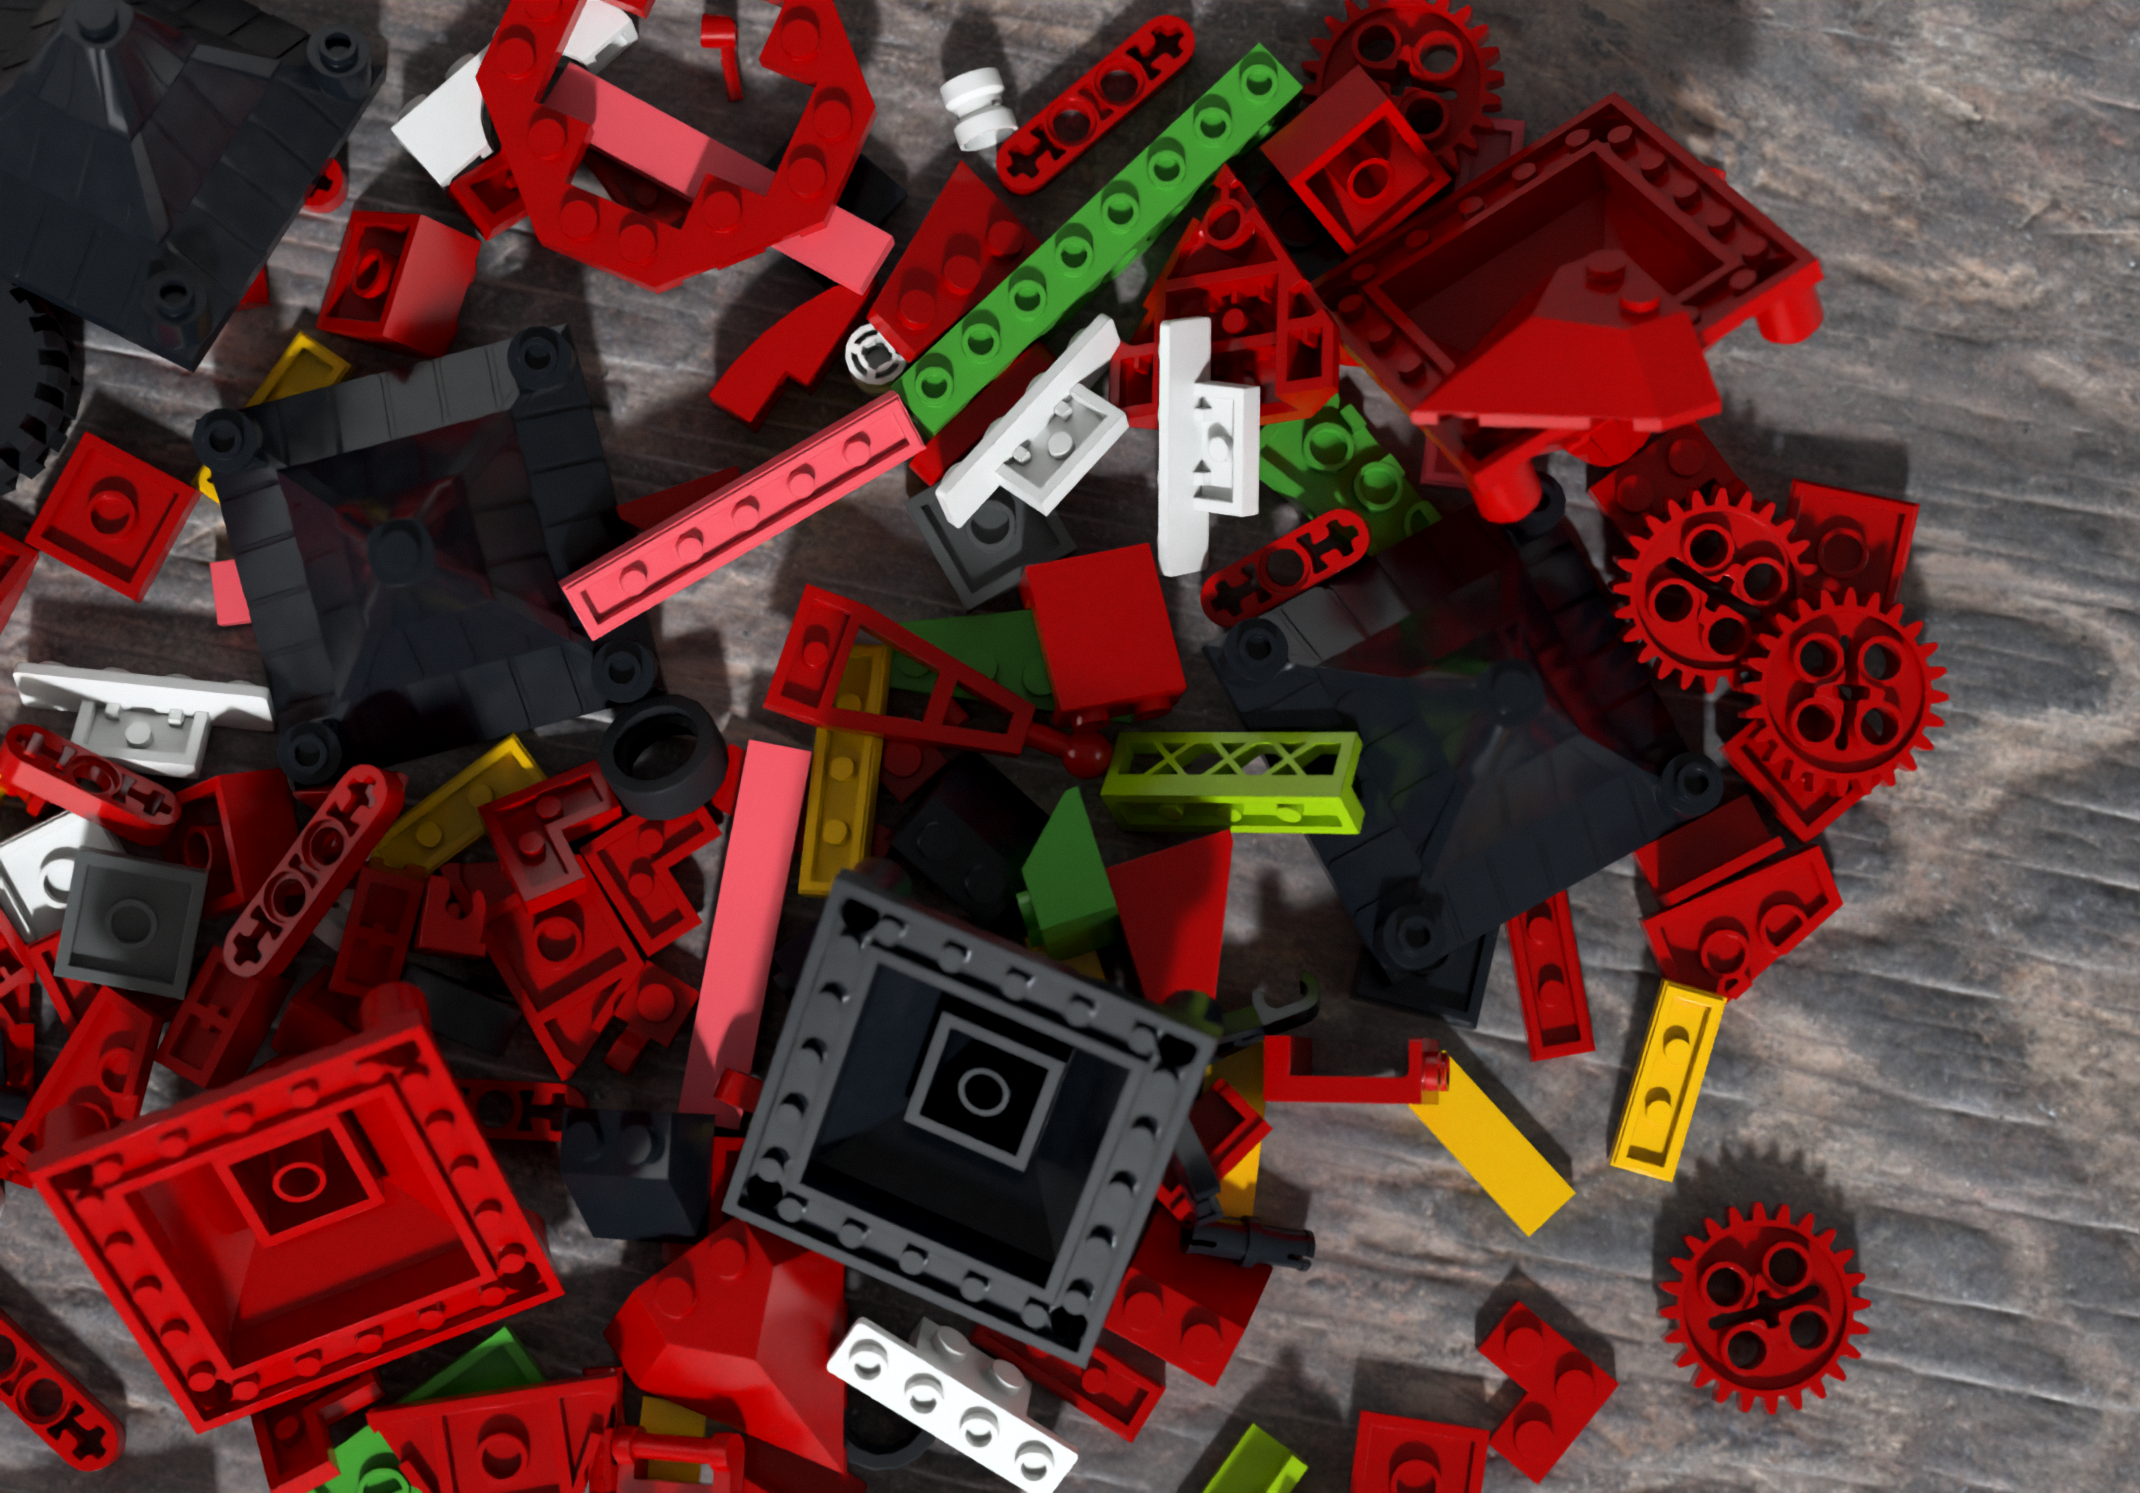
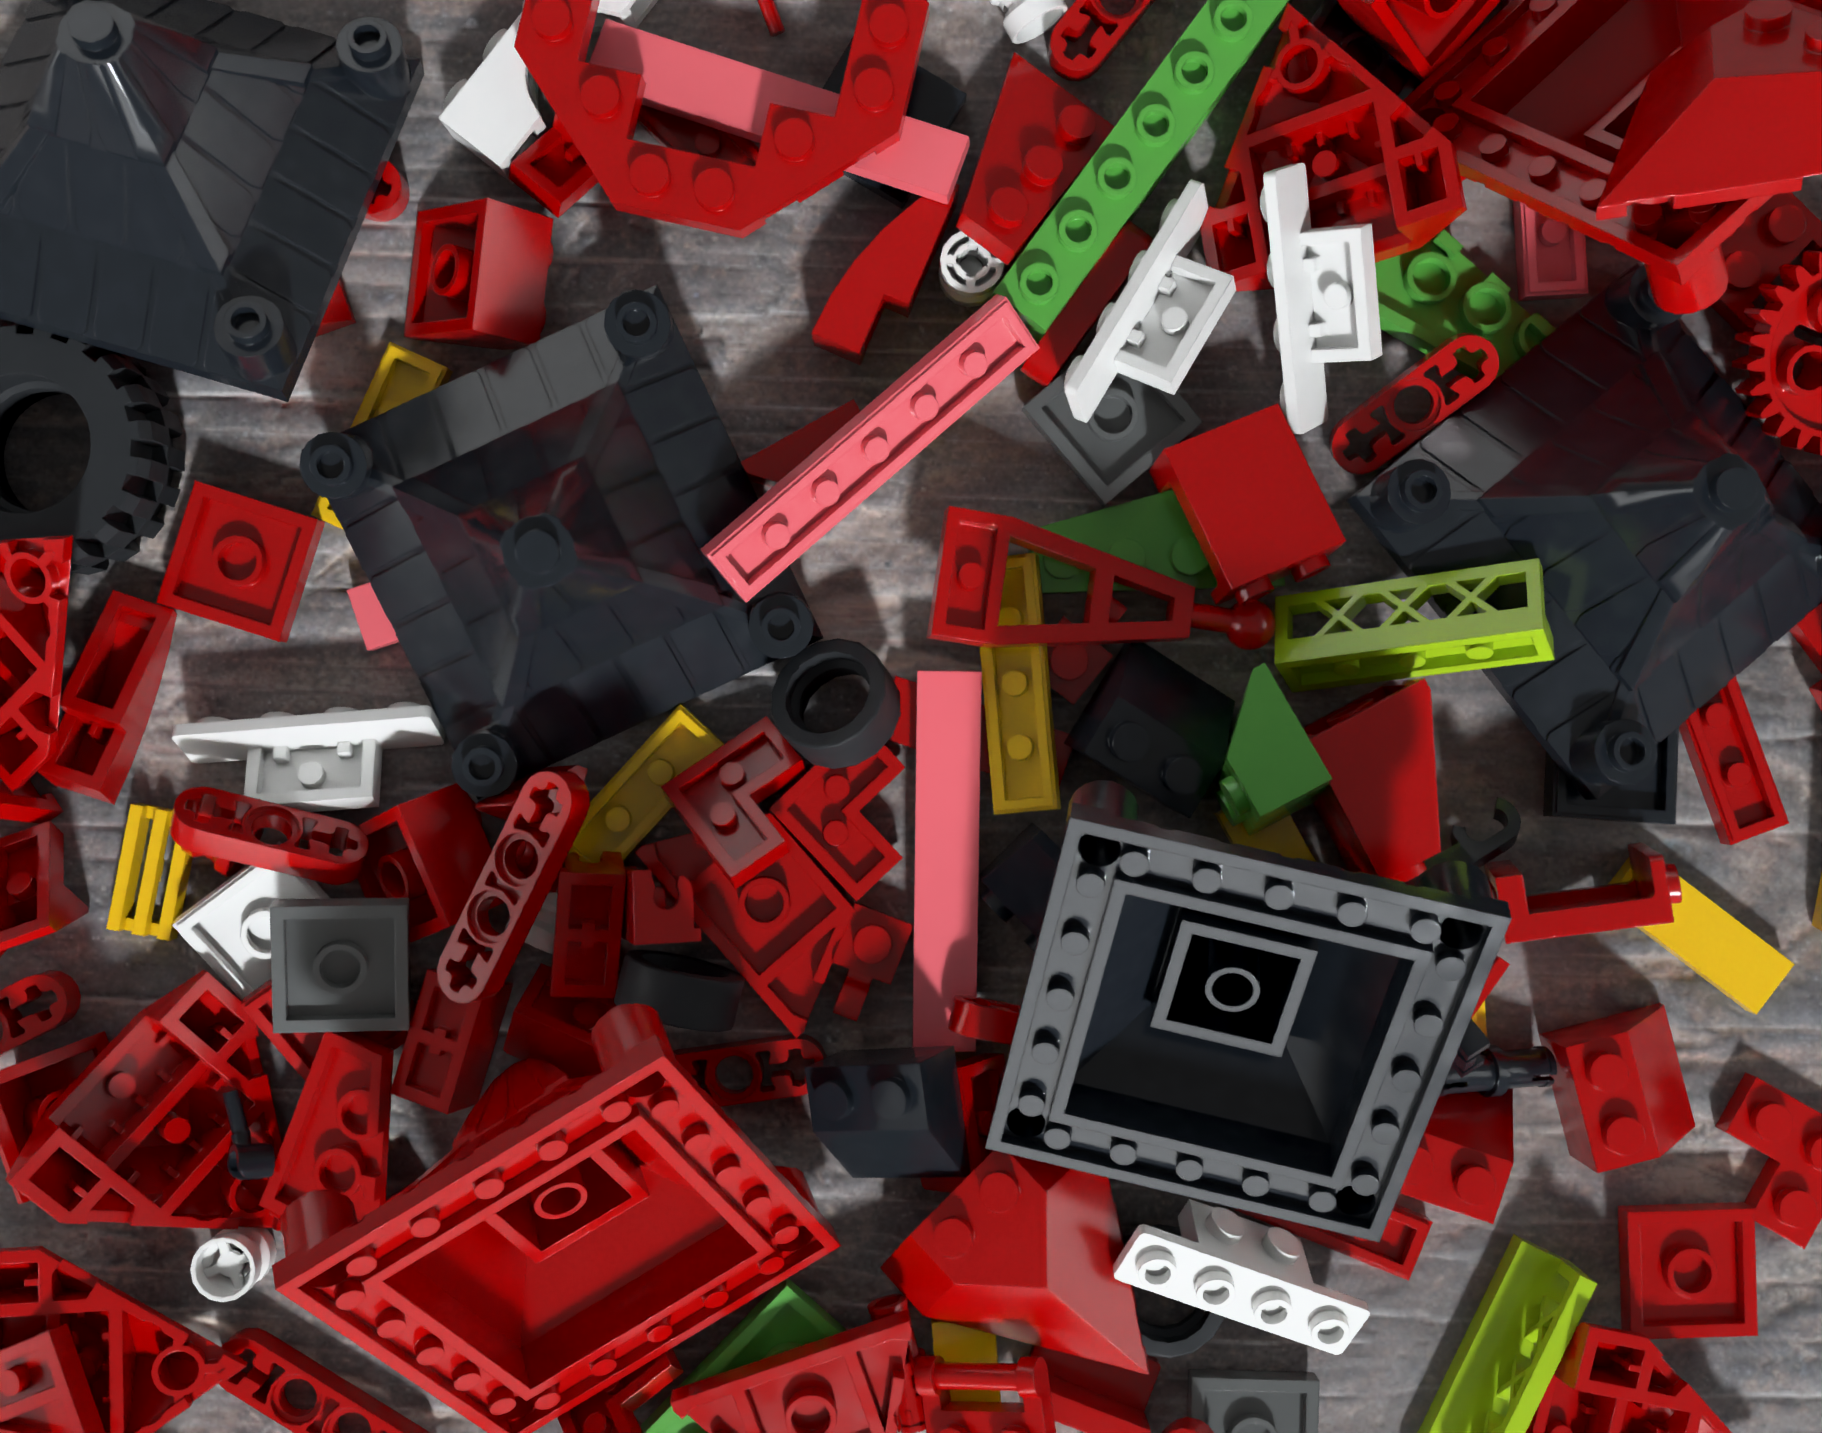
camera: 10 degrees left, 5 degrees up
(1381, 1283) = (1619, 1088): none -> red slope

